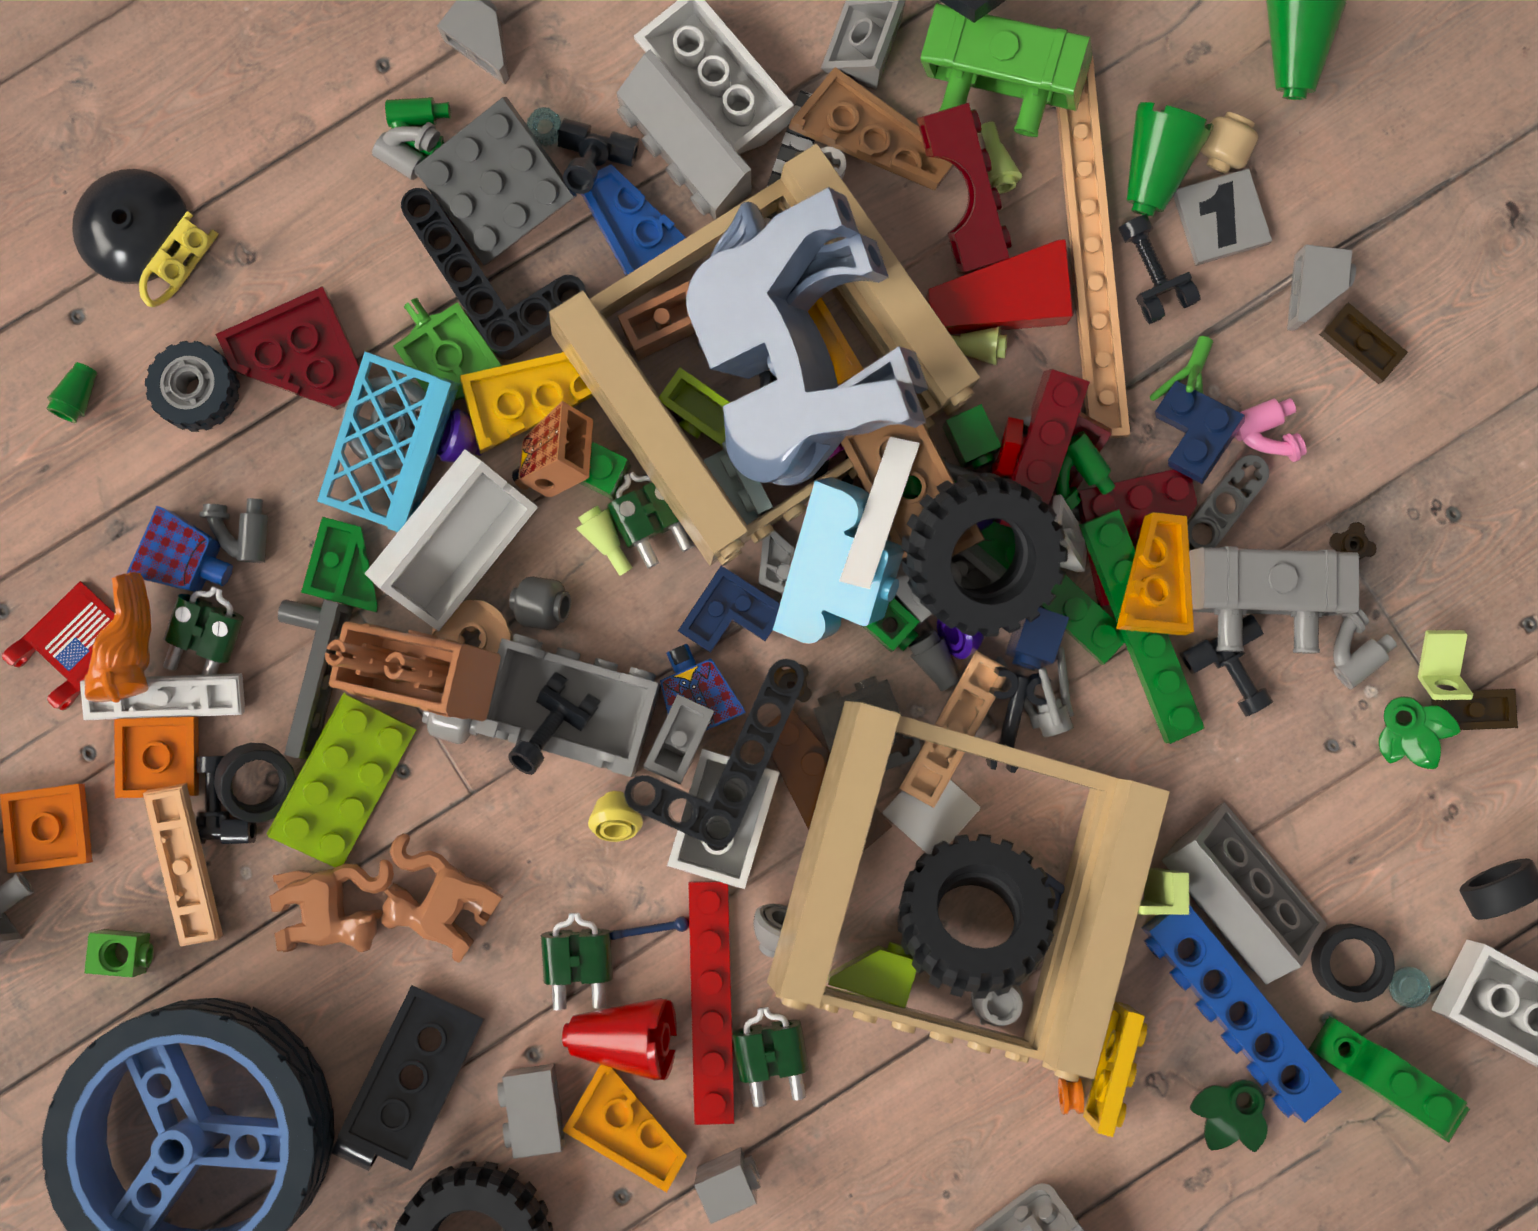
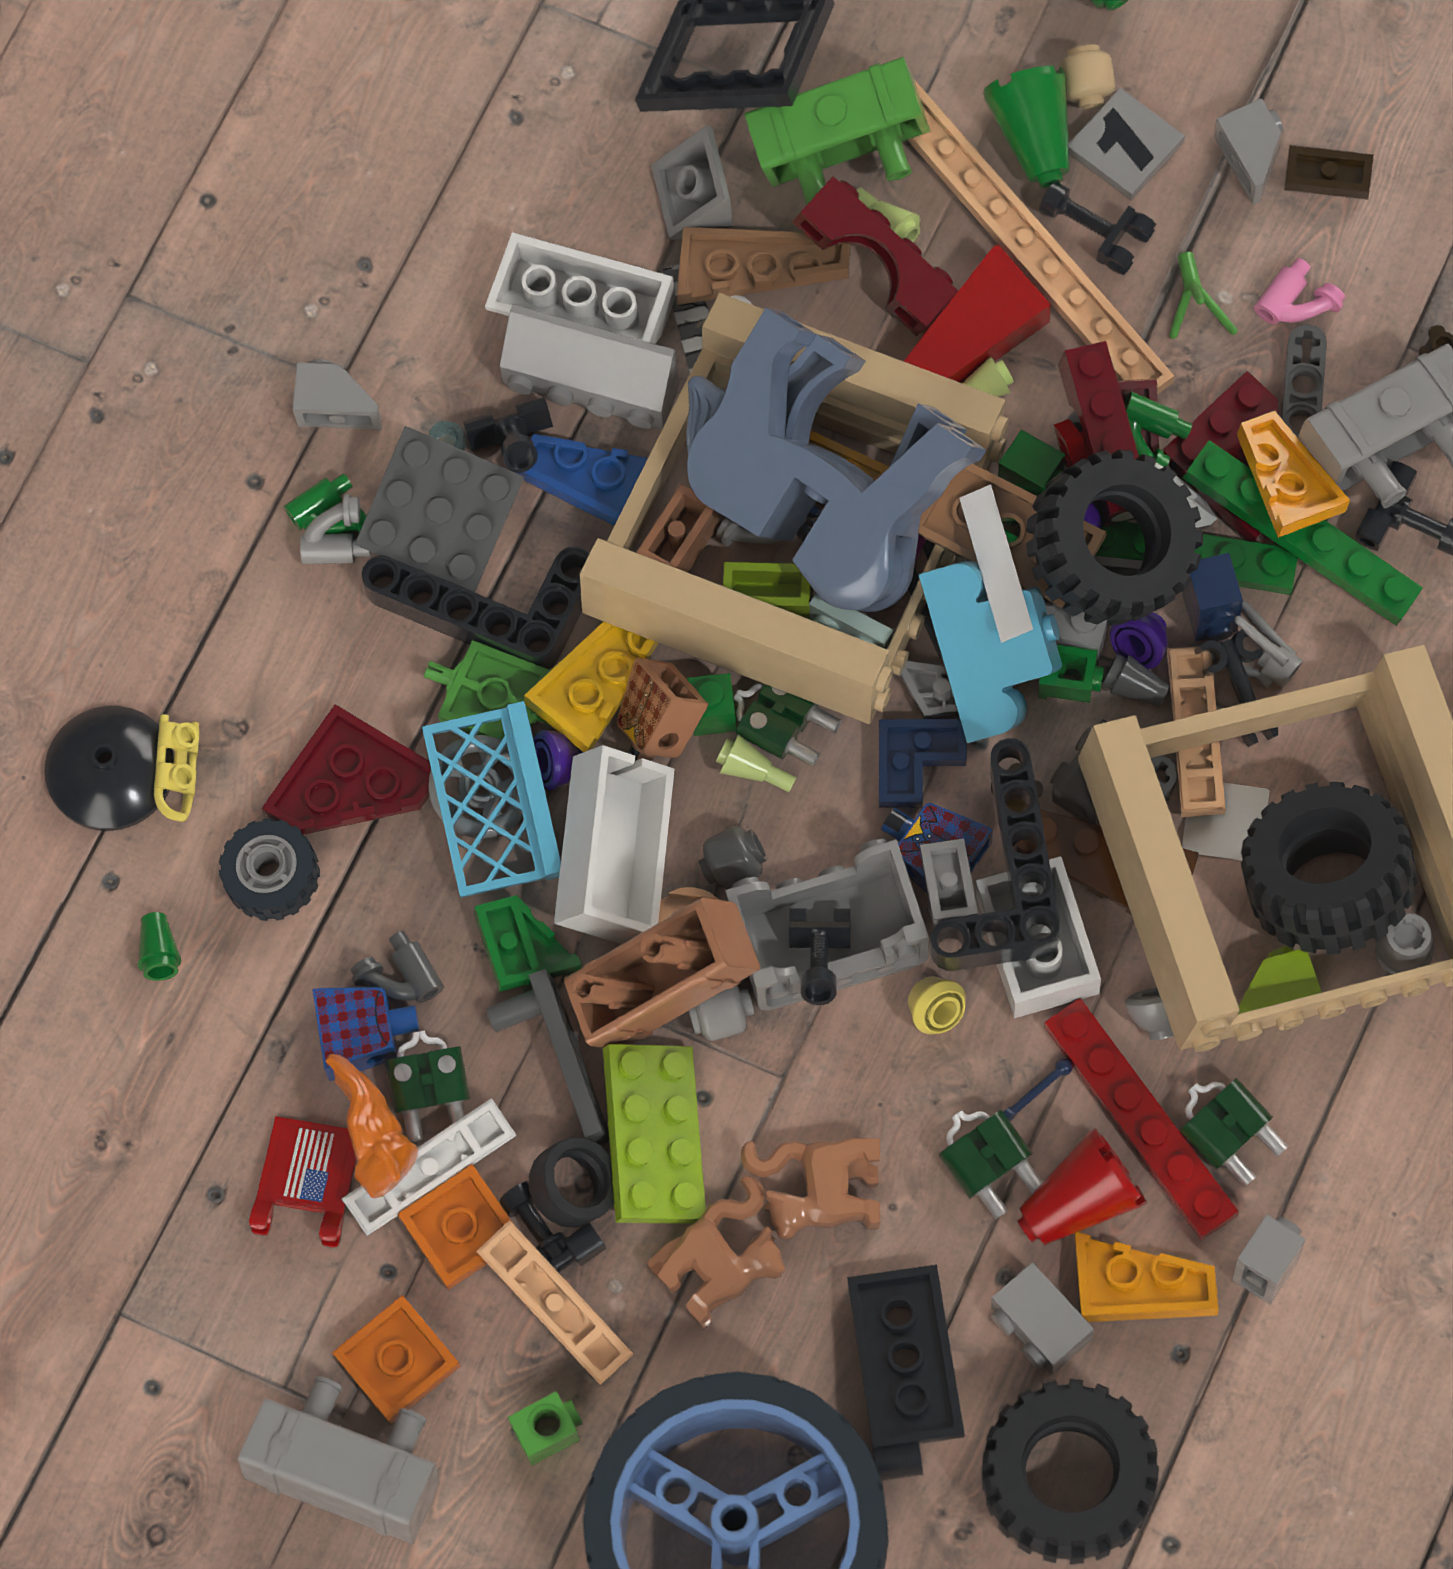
camera: 25 degrees left, 15 degrees down
(1207, 427) = (1239, 326): dark blue plate -> none

